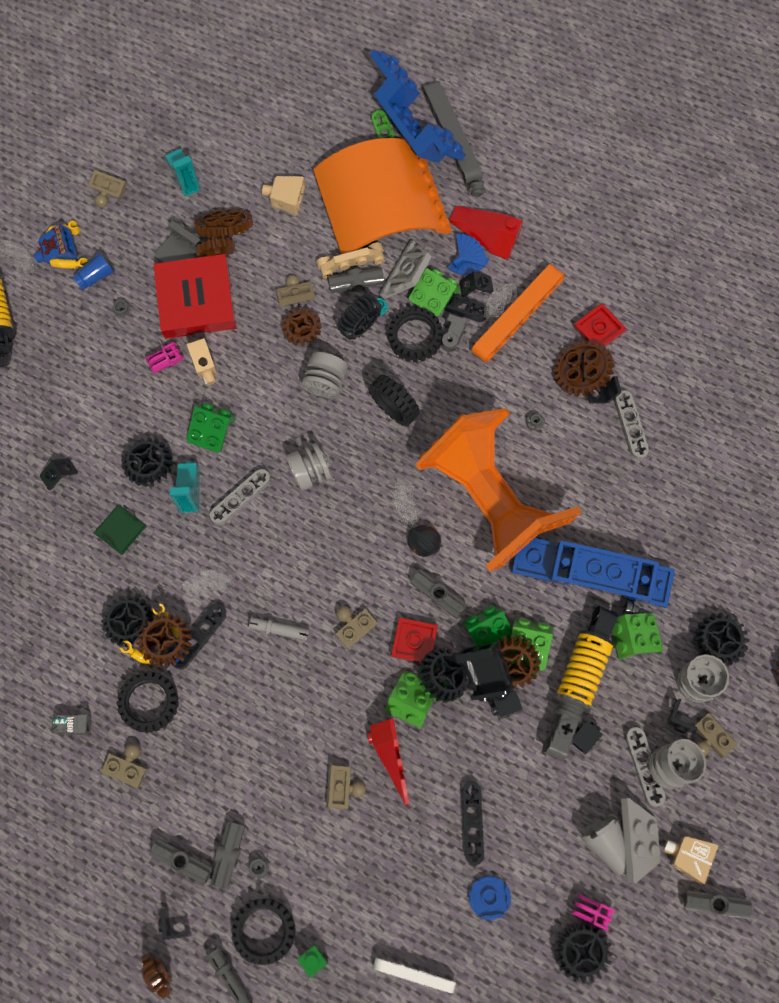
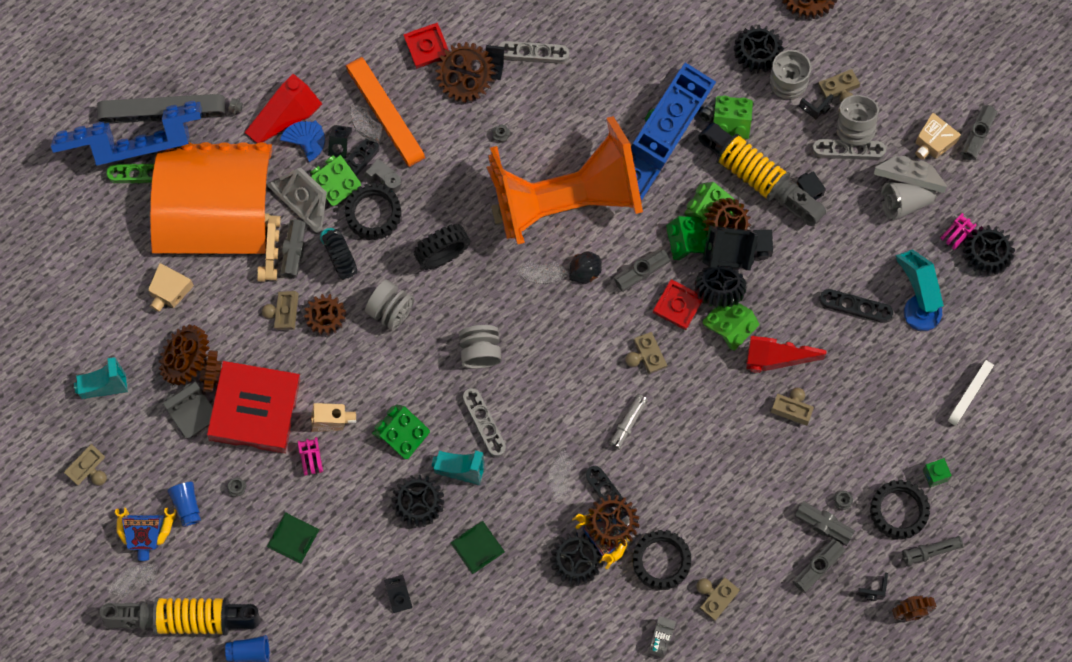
camera: 75 degrees left, 0 degrees up
(88, 370) = (293, 538): none -> dark green piece
(520, 884) = (923, 279): none -> teal arch

